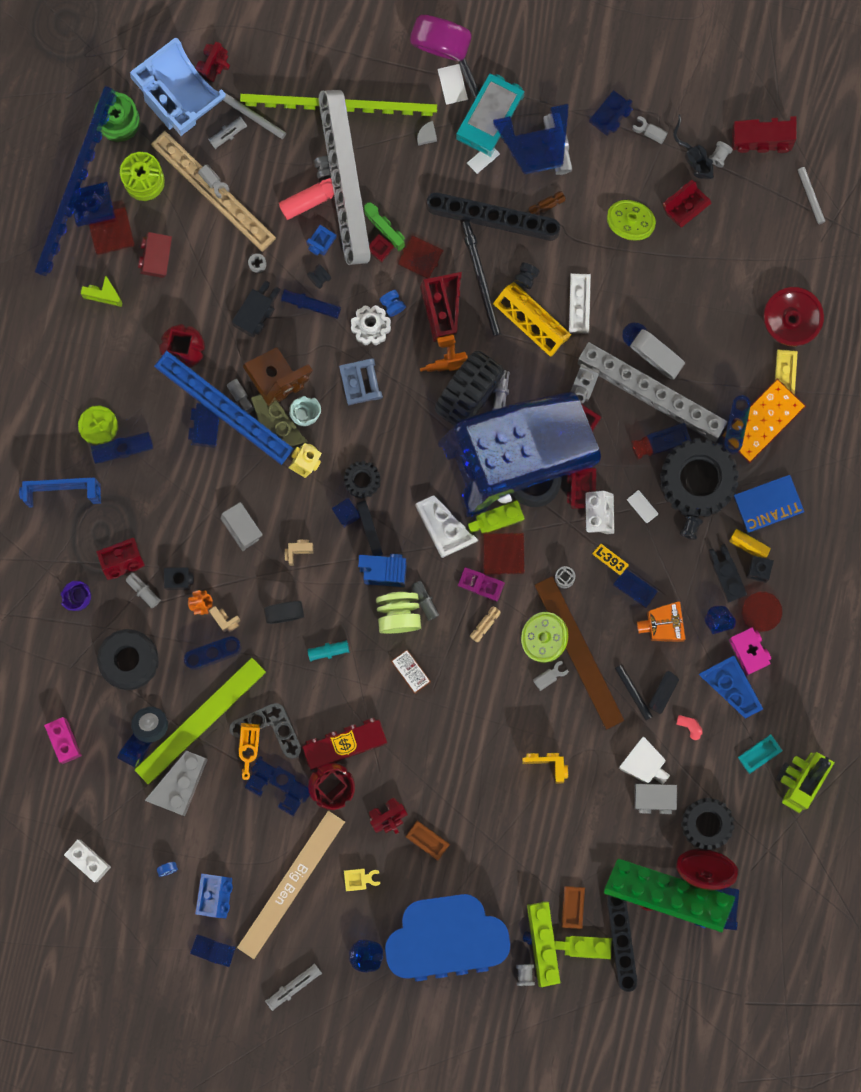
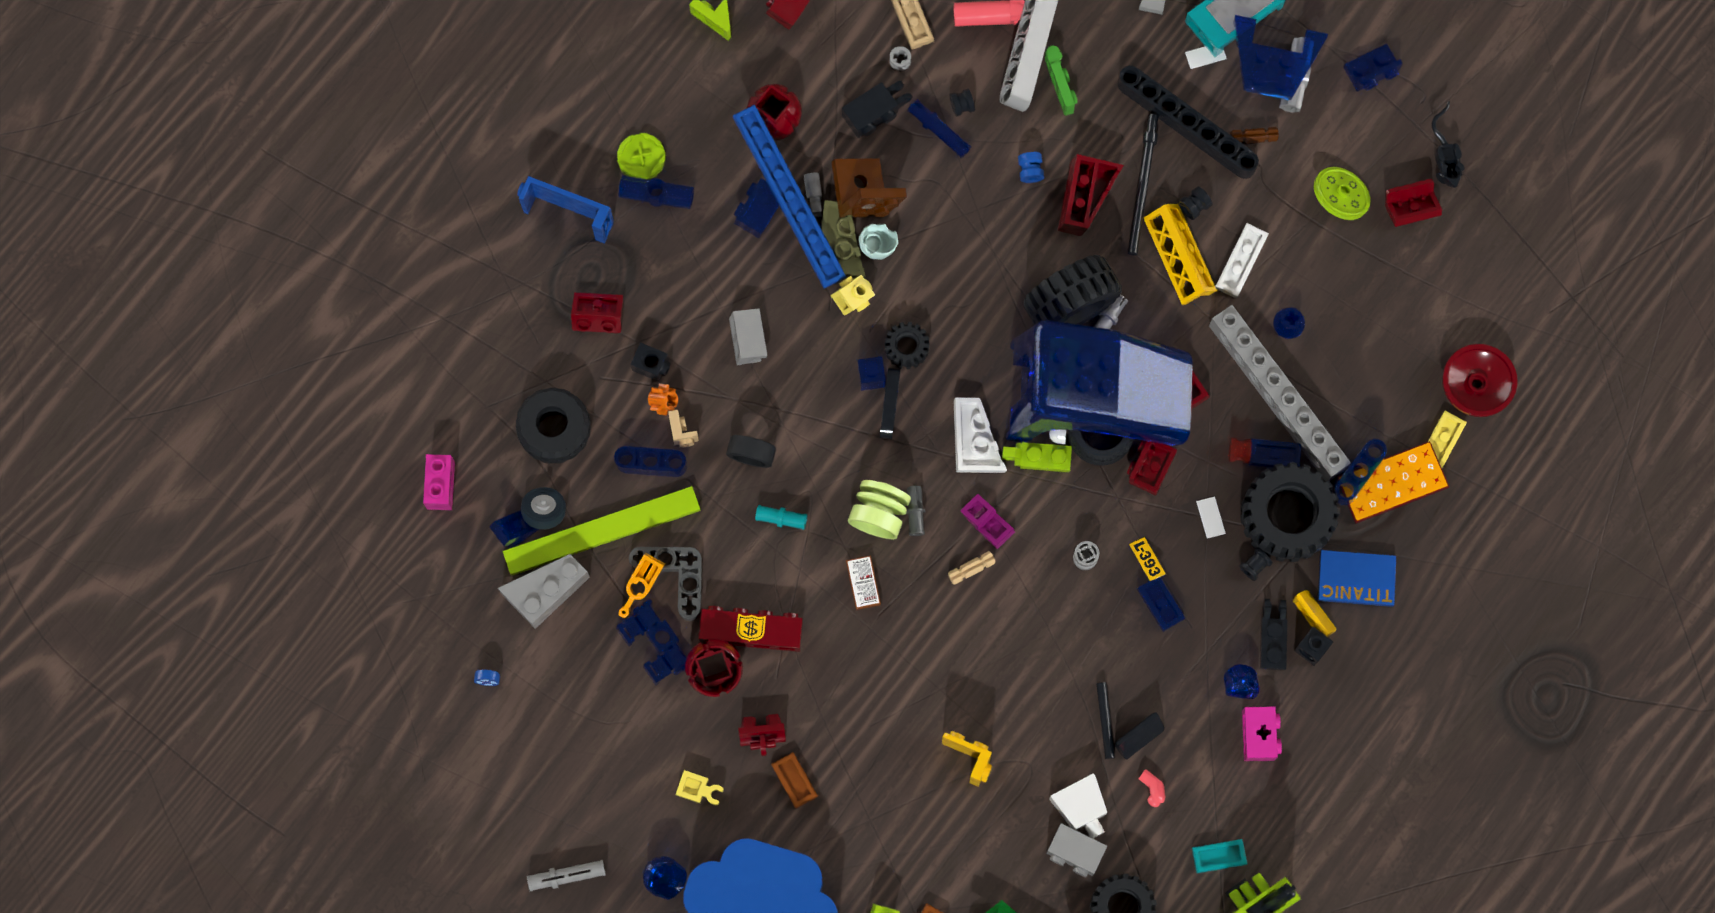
camera: 20 degrees right, 5 degrees down
(76, 596) = (529, 330): dark purple hair -> none
(87, 860) = (402, 627): white brick -> none
(142, 590) = (605, 358): light grey axle -> none
(213, 950) = (495, 793): clear blue slope -> none
(214, 896) = (525, 732): blue bracket -> none
(291, 885) = (617, 759): tan tile -> none
(300, 547) = (803, 389): tan bracket -> none
(321, 241) = (982, 65): blue bracket -> none
(354, 383) = (947, 234): sand blue plate -> none
(374, 334) = (996, 190): white plant -> none
(380, 248) = (1045, 102): dark red tile -> none
(383, 570) = (884, 454): blue piece -> none
(420, 257) = (1085, 131): clear red piece -> none
(451, 360) = (1067, 255): orange piece -> none
(504, 553) = (1028, 499): clear red tile -> none
(544, 637) = (1032, 611): lime shield -> none
(549, 676) = (1017, 659): light grey bar -> none
(581, 655) = (1063, 648): reddish brown tile -> none
(585, 382) = (1207, 348): light grey hips -> none
(600, 512) = (1159, 500): white bracket -> none
(650, 130) = (1408, 106): light grey bar -> none
(657, 354) = (1304, 354): light grey beam -> none
(664, 624) = (1175, 658): orange torso -> none
(720, 154) = (1477, 165): light grey bush -> none
(733, 686) = (1223, 764): blue wing -> none
(762, 611) = (1294, 696): clear red tile -> none
(764, 135) = (1535, 166): dark red wedge -> none
(811, 195) = (1560, 256): light grey bar -> none

